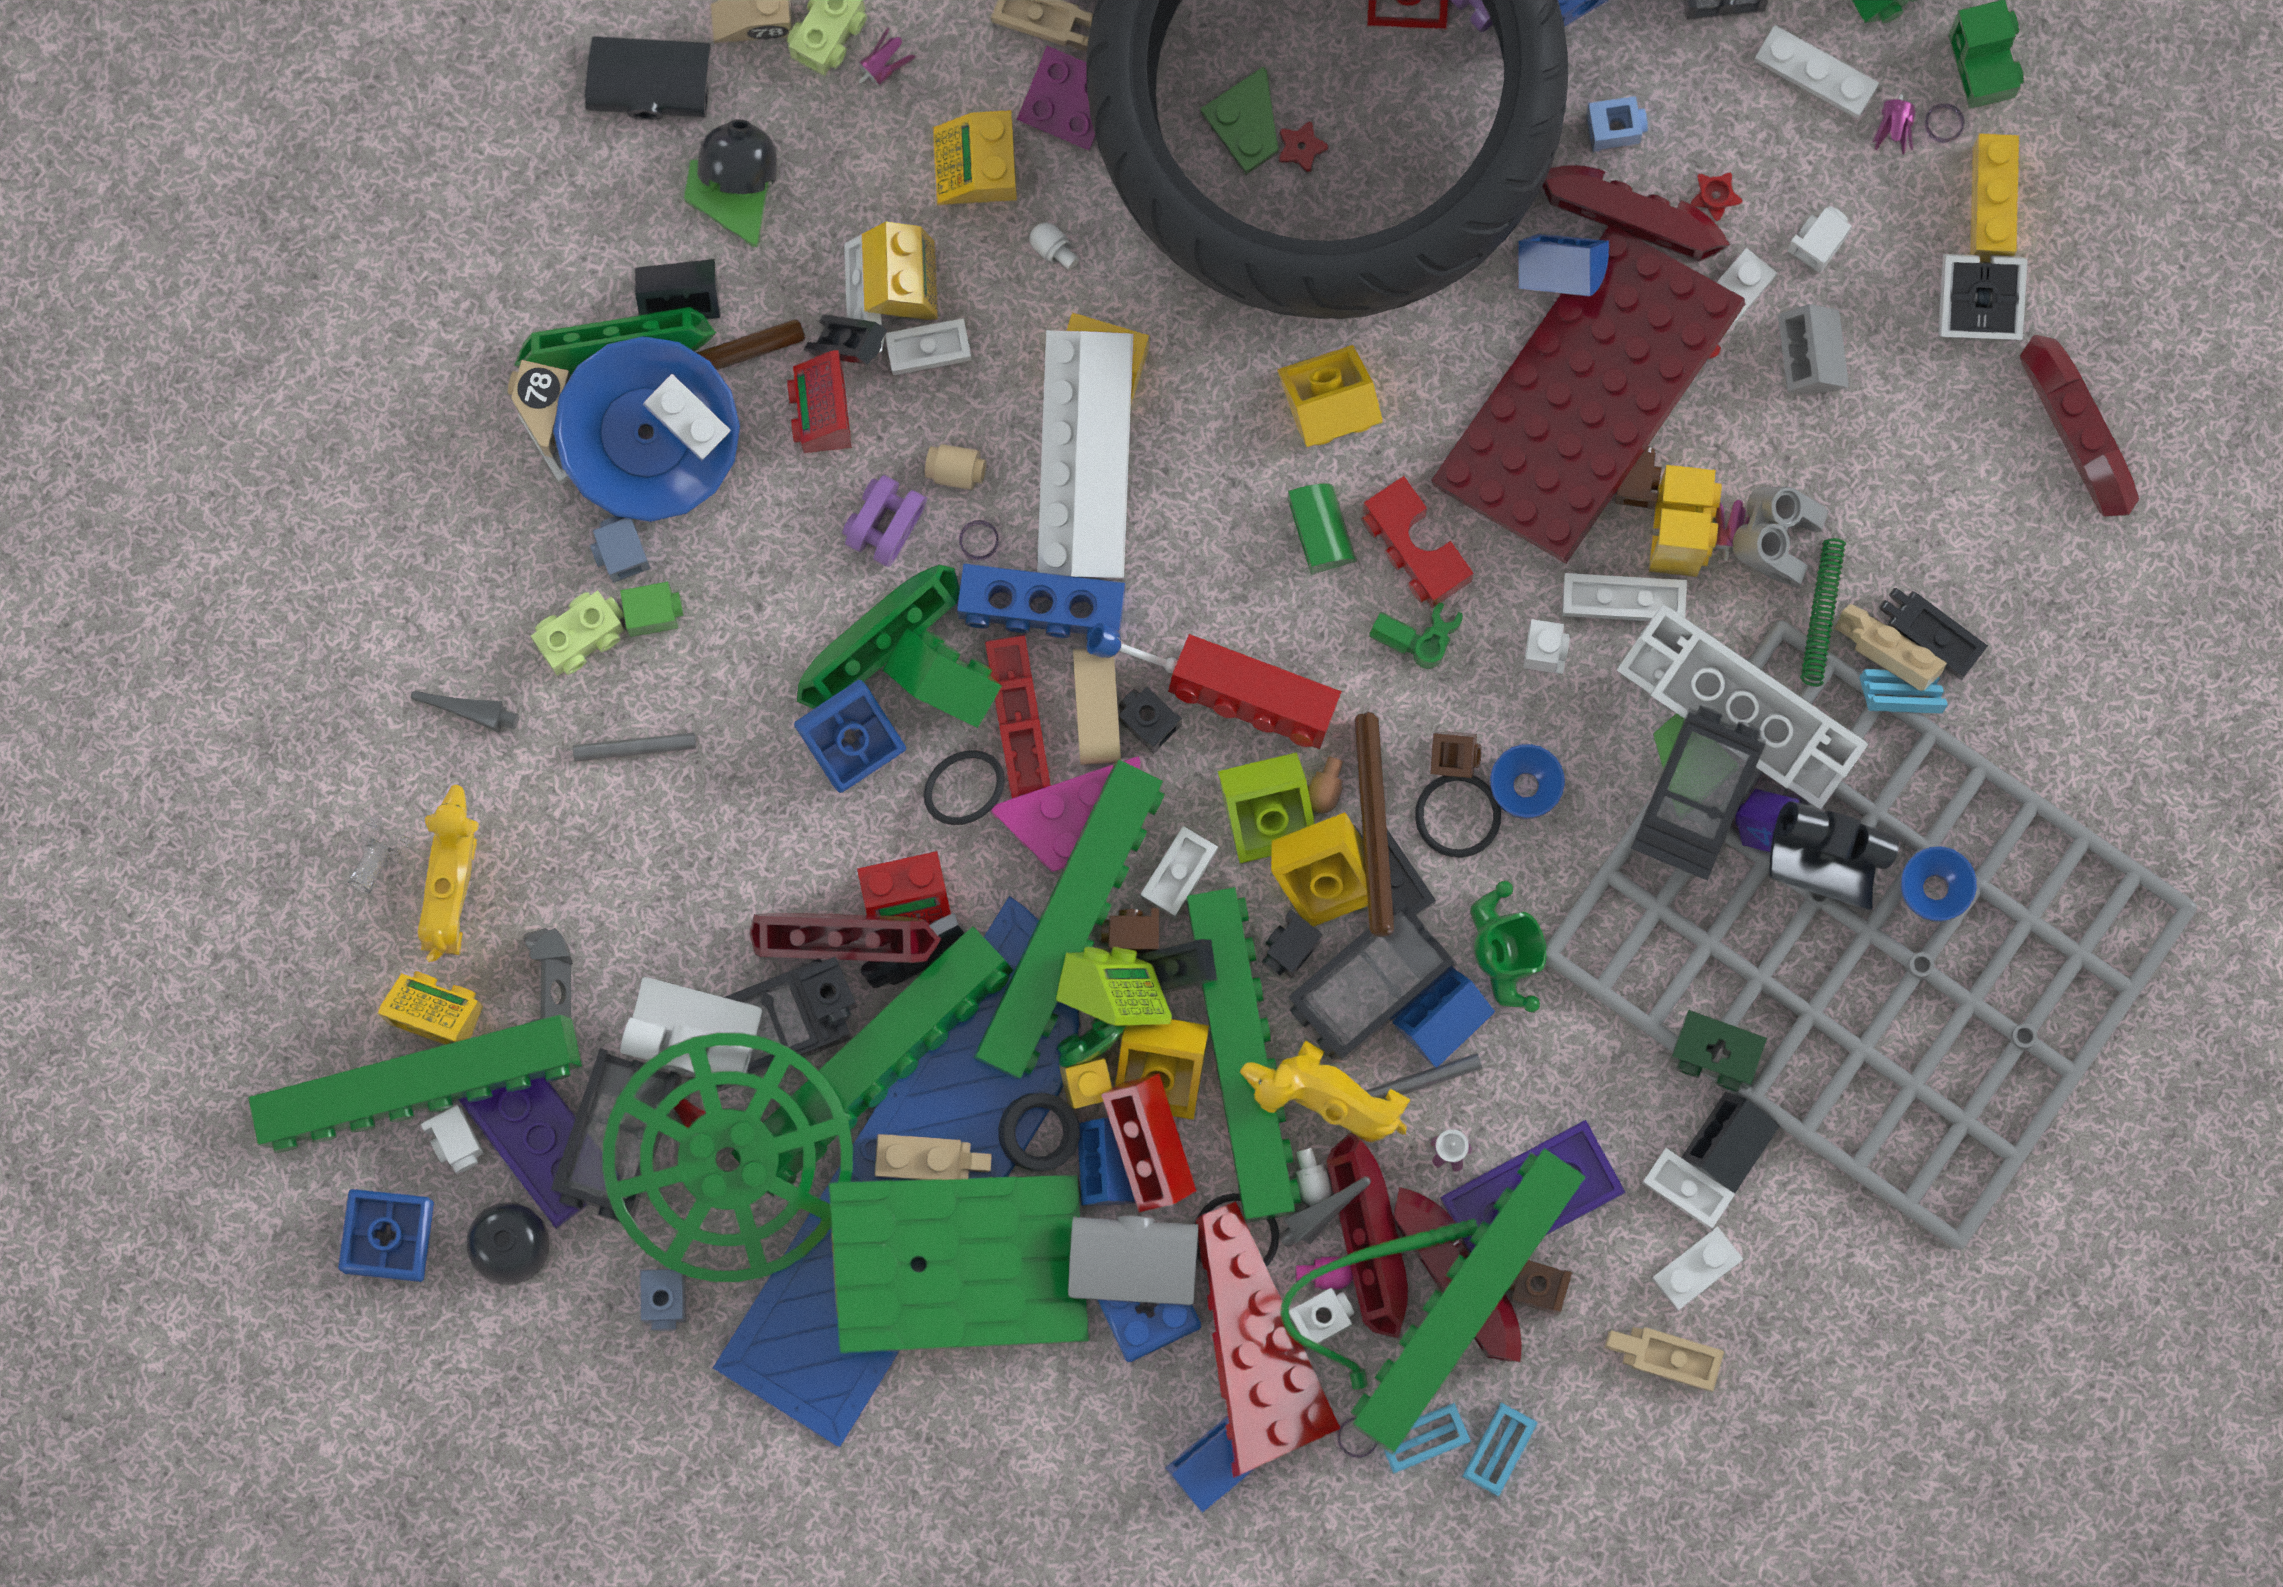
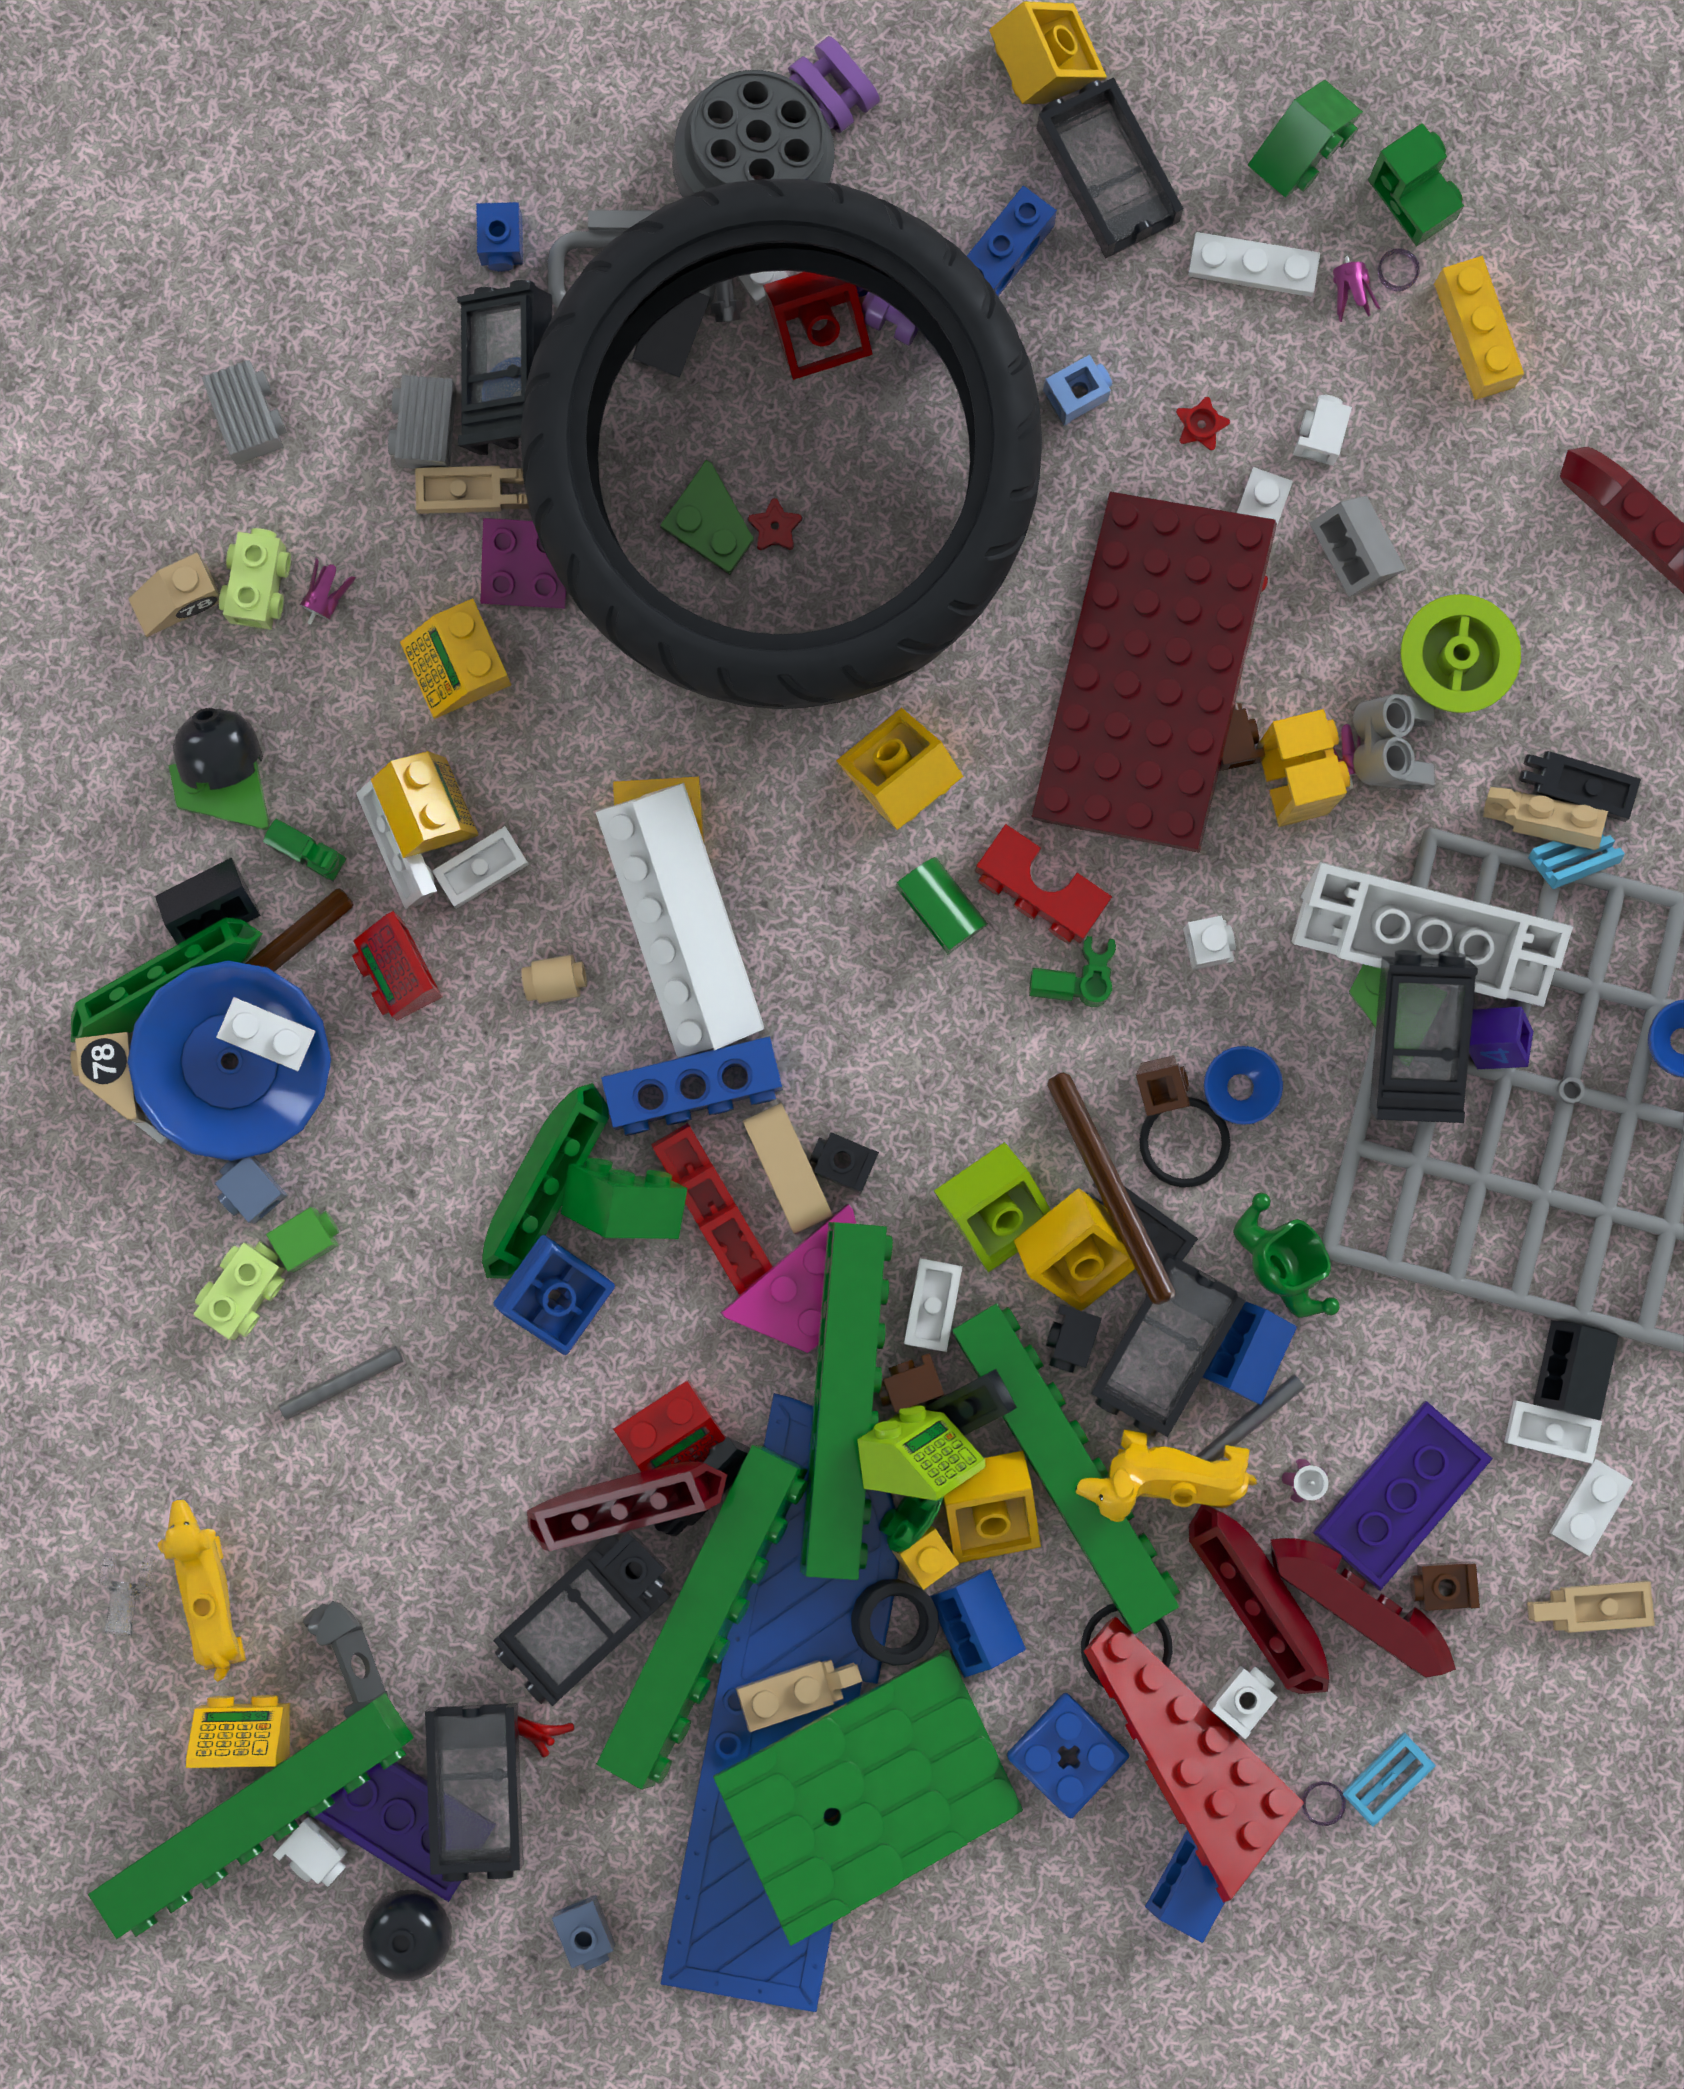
camera: 25 degrees left, 5 degrees up
(370, 1213) = (266, 2002): blue brick -> none
(484, 712) = (179, 1406): dark grey piece -> none
(647, 77) = (92, 697): black panel -> none
(675, 1013) = (510, 1659): white panel -> none
(718, 1130) = (580, 1755): green dish -> none
(780, 274) = (303, 848): none -> green bar
(854, 338) = (401, 891): black hinge -> none
(862, 527) = (490, 1038): medium lavender brick -> none
(978, 522) = (592, 1030): clear purple axle -> none
(1000, 778) = (712, 1327): black tyre -> none
(1052, 242) = (565, 717): white cylinder -> none
(1106, 642) = (774, 1105): blue hinge -> none
(1133, 1260) = (1040, 1719): light grey panel -> none
(1149, 1142) = (1010, 1594): red brick -> none
(1254, 692) = (939, 1097): red brick -> none
(1311, 1221) = (1197, 1609): dark grey piece -> none
(1312, 1179) = (1181, 1563): white cylinder -> none
(1326, 787) = (1045, 1163): nougat cylinder -> none
(1336, 1279) = (1230, 1652): dark pink cylinder -> none
(1413, 1242) = (1306, 1599): green piece -> none
(1467, 1301) = (1387, 1637): green brick -> none
(1516, 1417) = (1461, 1799): medium azure tile -> none
(1562, 264) = (1080, 551): brick -> none
(1621, 596) = (1265, 863): white plate -> none
(1647, 218) = (1148, 472): dark red brick -> none
(1704, 1032) = (1561, 1284): dark green brick -> none
(1815, 617) = (1470, 806): green piece -> none
(1829, 853) = (1572, 1050): black panel -> none
(1865, 474) = (1460, 653): none -> lime piece
(1966, 299) = (1505, 431): piece -> none

